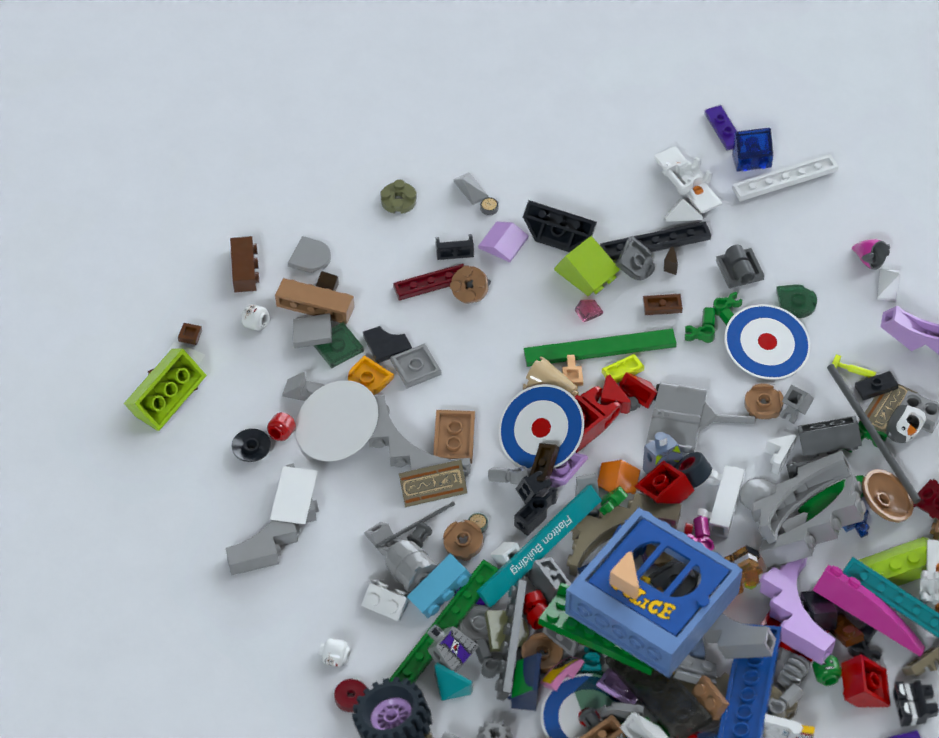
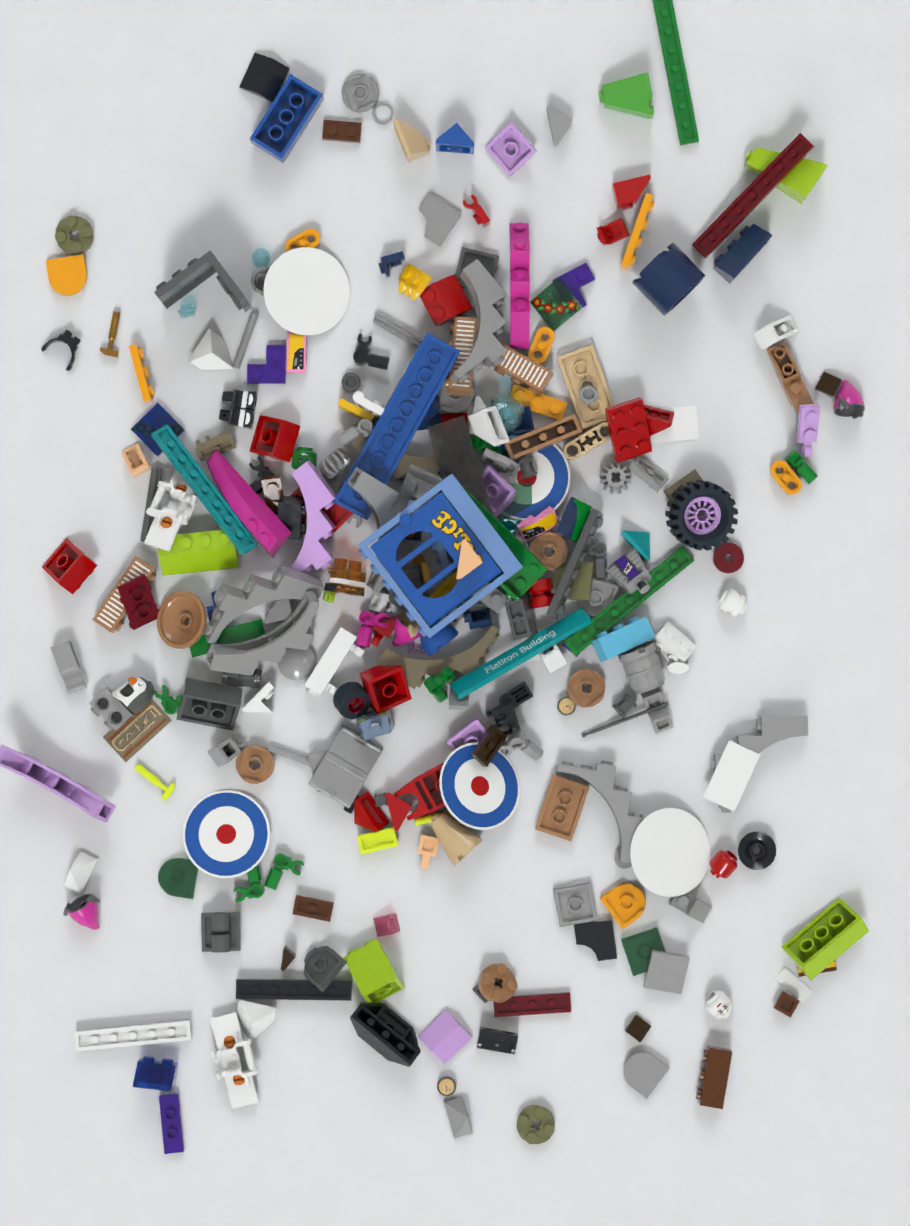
camera: 160 degrees left, 35 degrees up
(314, 300) = (655, 1009): medium nougat brick -> none
(433, 483) = (597, 756): dark tan sticker -> none
(602, 346) = (390, 875): green tile -> none
(618, 474) = (422, 717): orange slope -> none
(710, 697) = (421, 449): medium nougat plate -> none
(874, 434) = (167, 694): dark grey piece -> none
(876, 385) = (140, 753): black plate -> none

